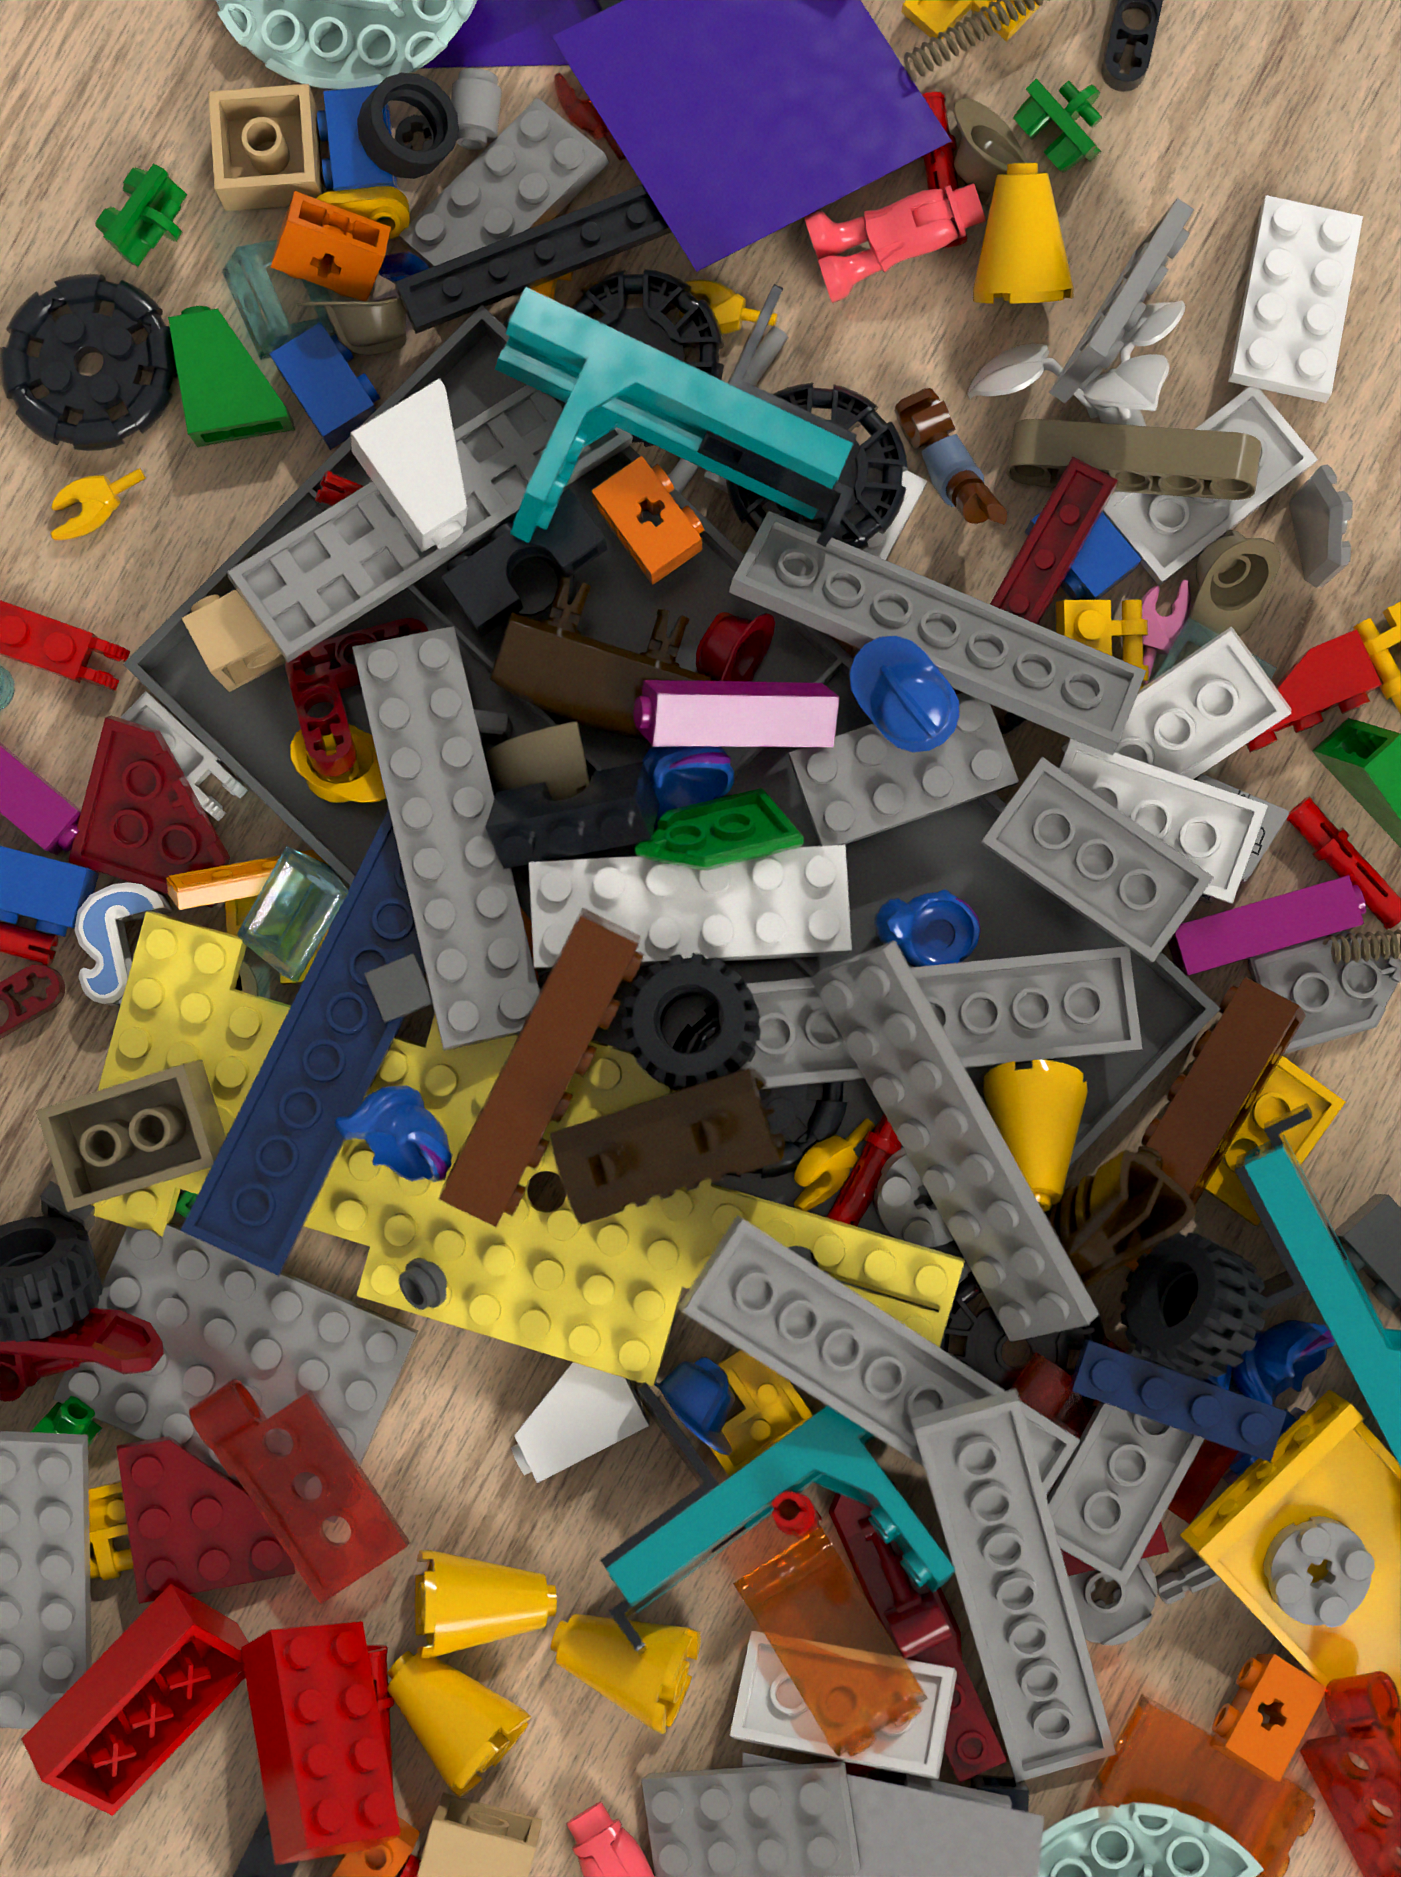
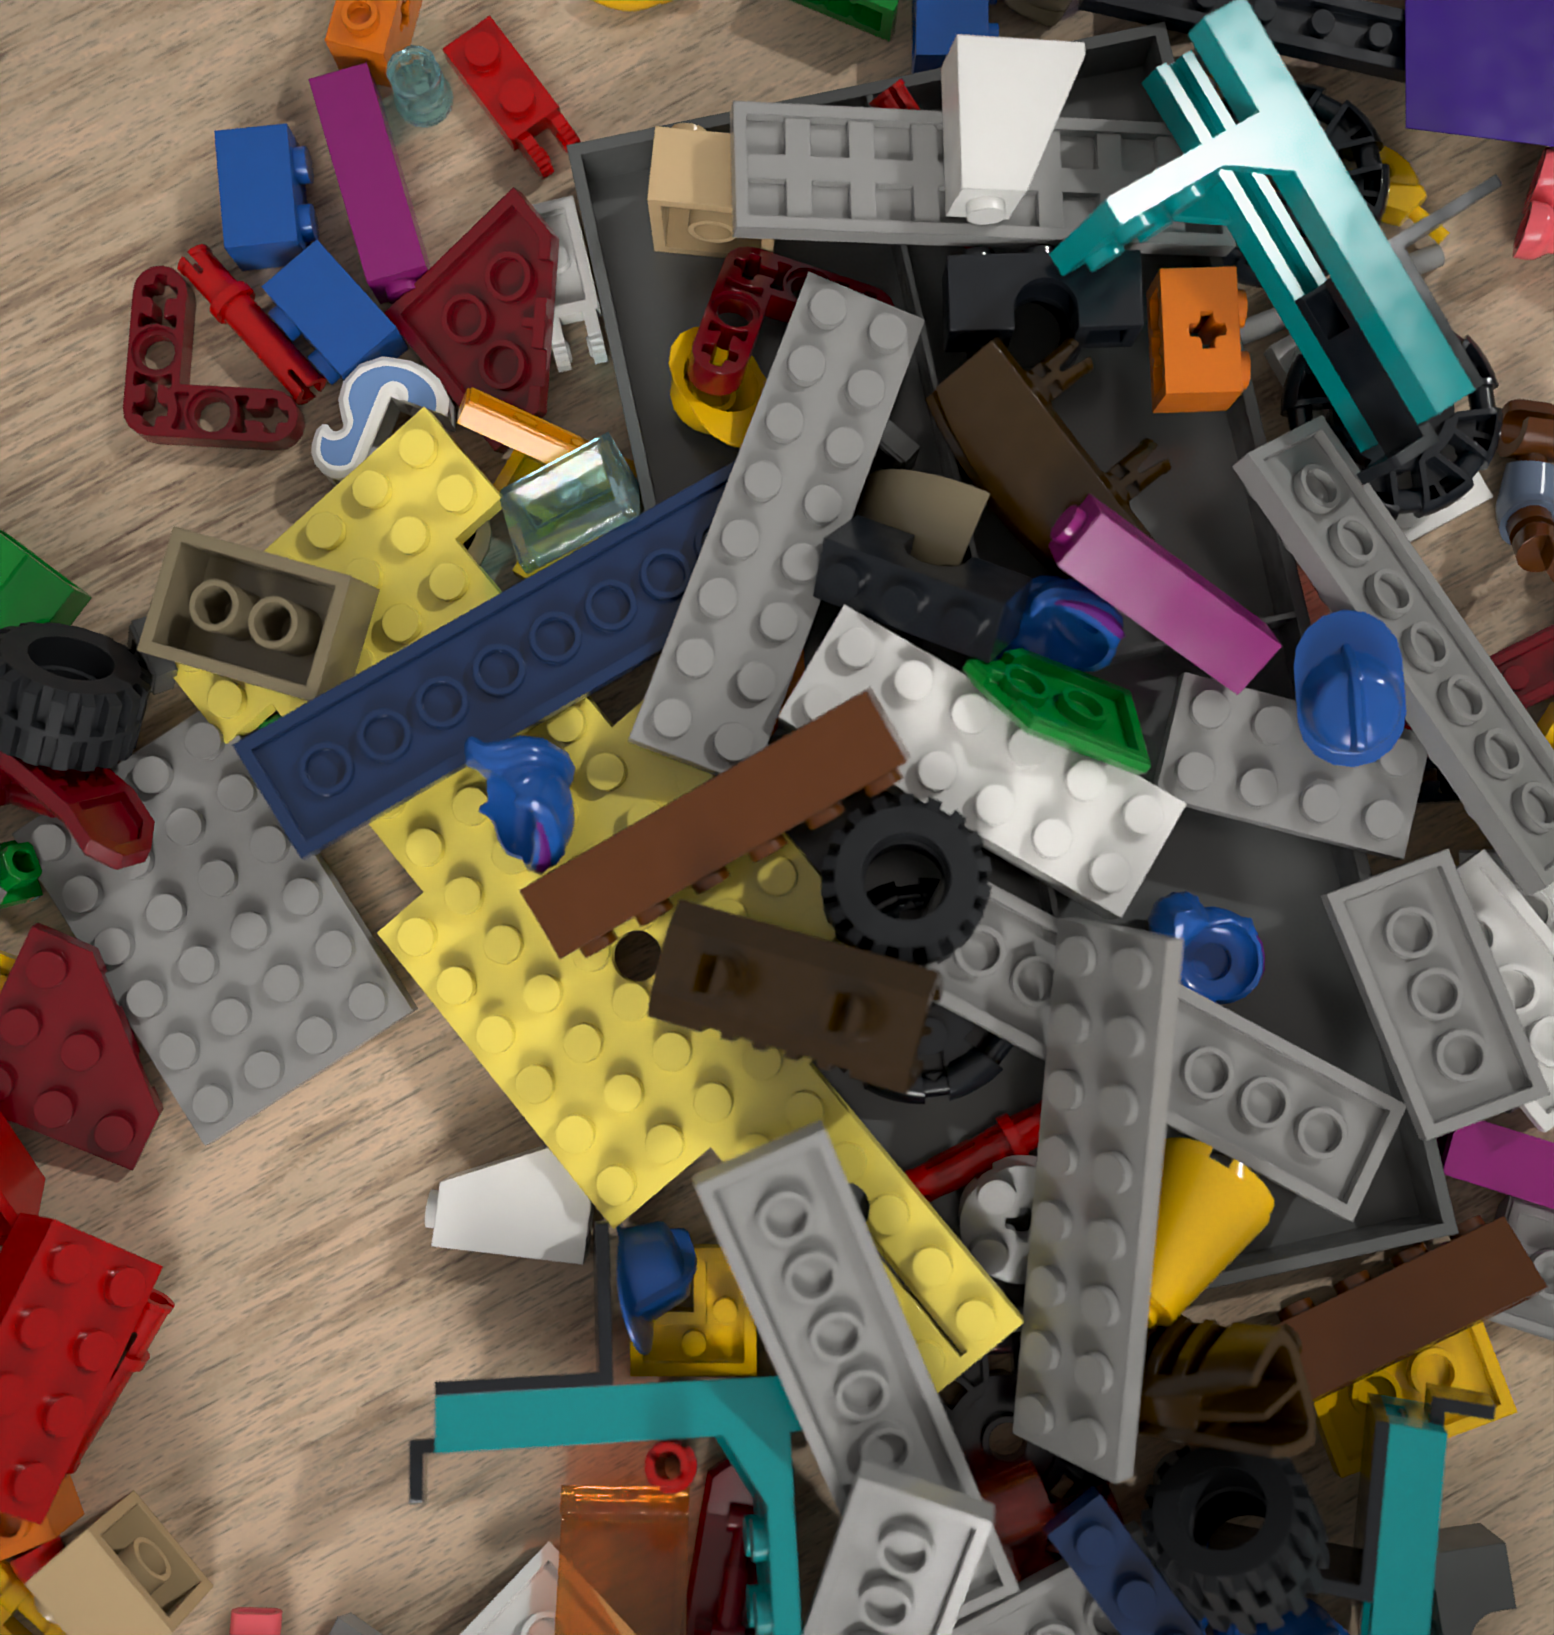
camera: 30 degrees right, 0 degrees up
(237, 1433) = (161, 990): clear red hinge -> none
(399, 988) = (624, 647): dark grey tile -> none
(423, 1284) = (449, 967): dark grey plate -> none
(455, 1718) = (189, 1427): yellow cone -> none
(476, 1602) = (290, 1326): yellow cone -> none
(644, 1684) = (375, 1472): yellow cone -> none
(734, 647) = (1199, 527): dark red piece -> none
(827, 1166) = (940, 1122): yellow hand -> none

